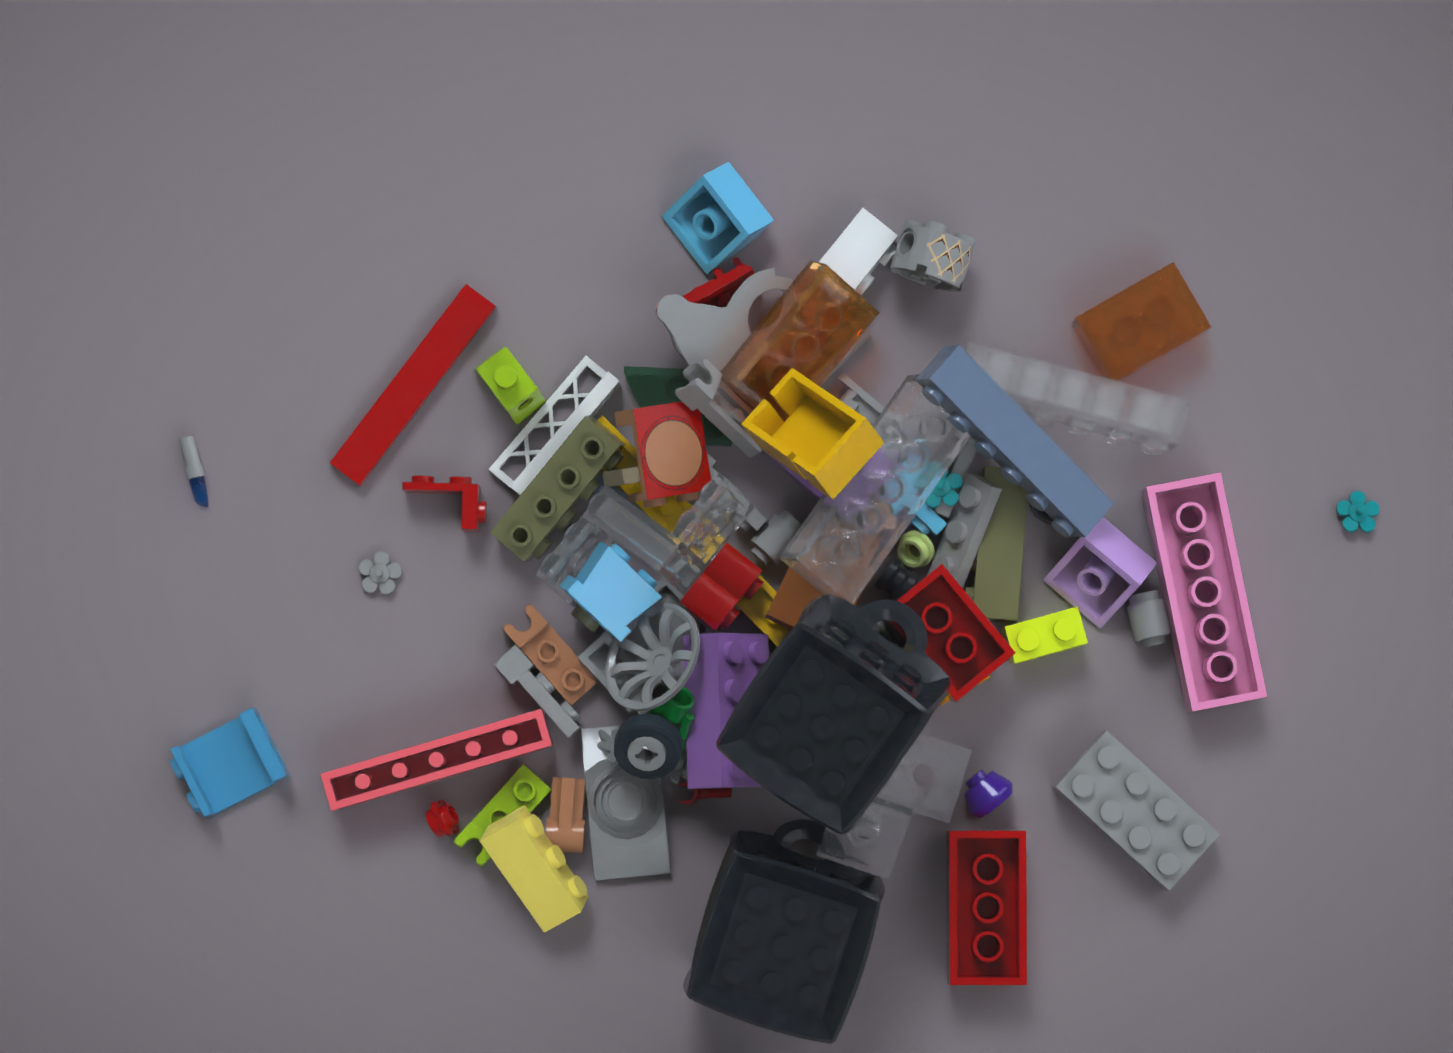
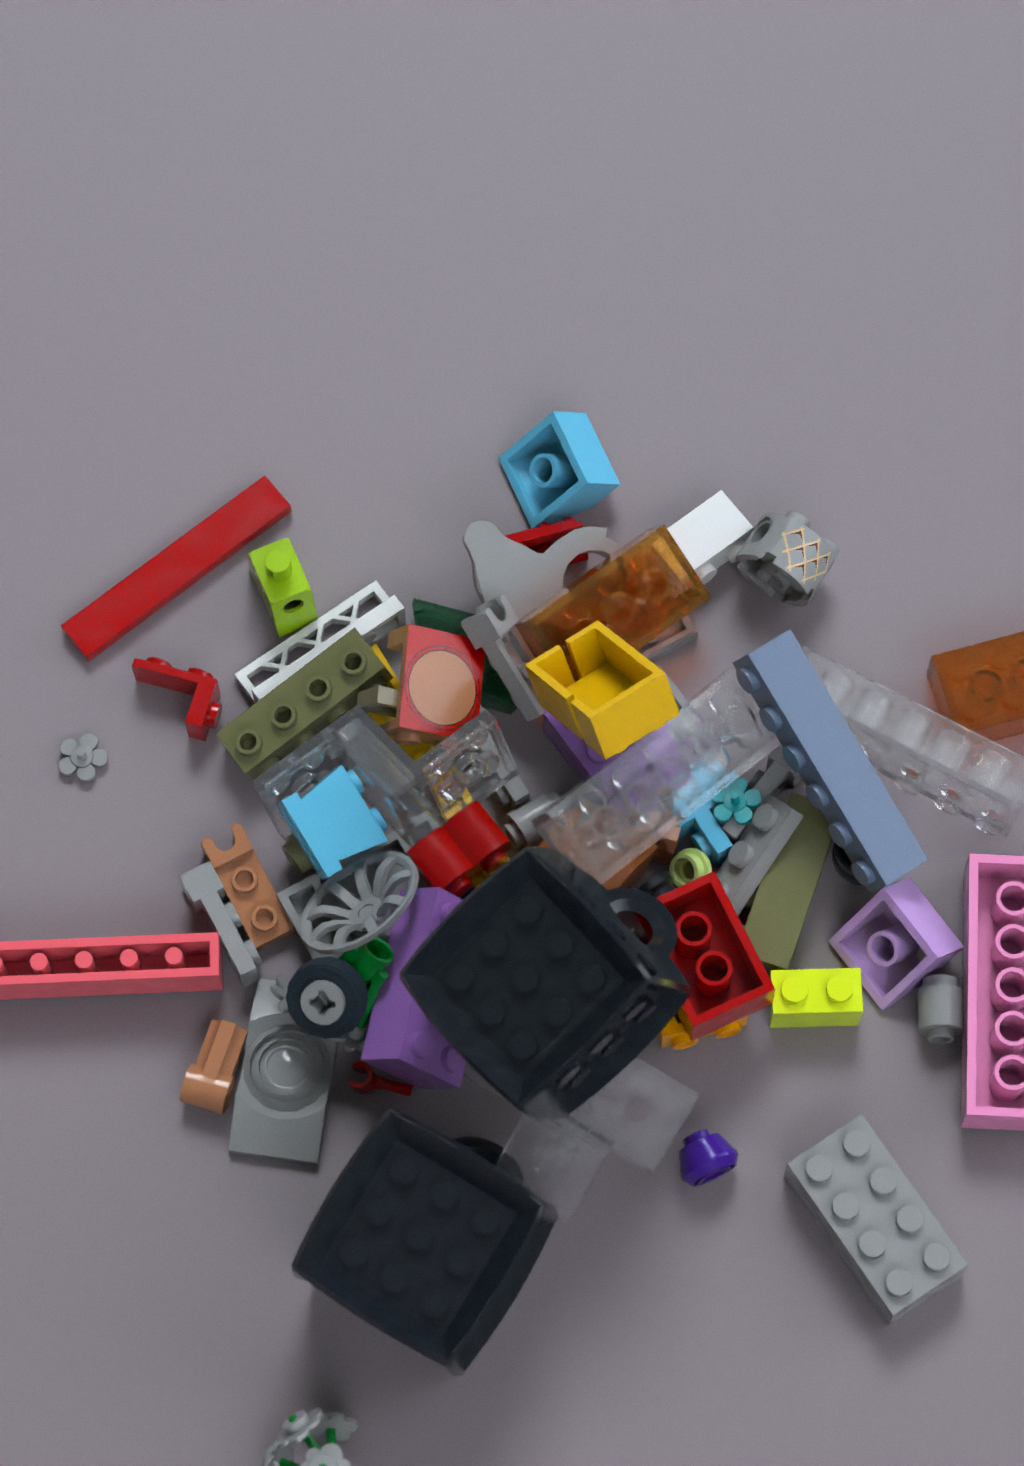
camera: 15 degrees right, 15 degrees down
(442, 818) = (74, 1036): red plate -> none
(520, 790) = (143, 1050): lime plate -> none
(535, 868) = (162, 1111): light yellow brick -> none
(986, 908) = (673, 1286): red brick -> none

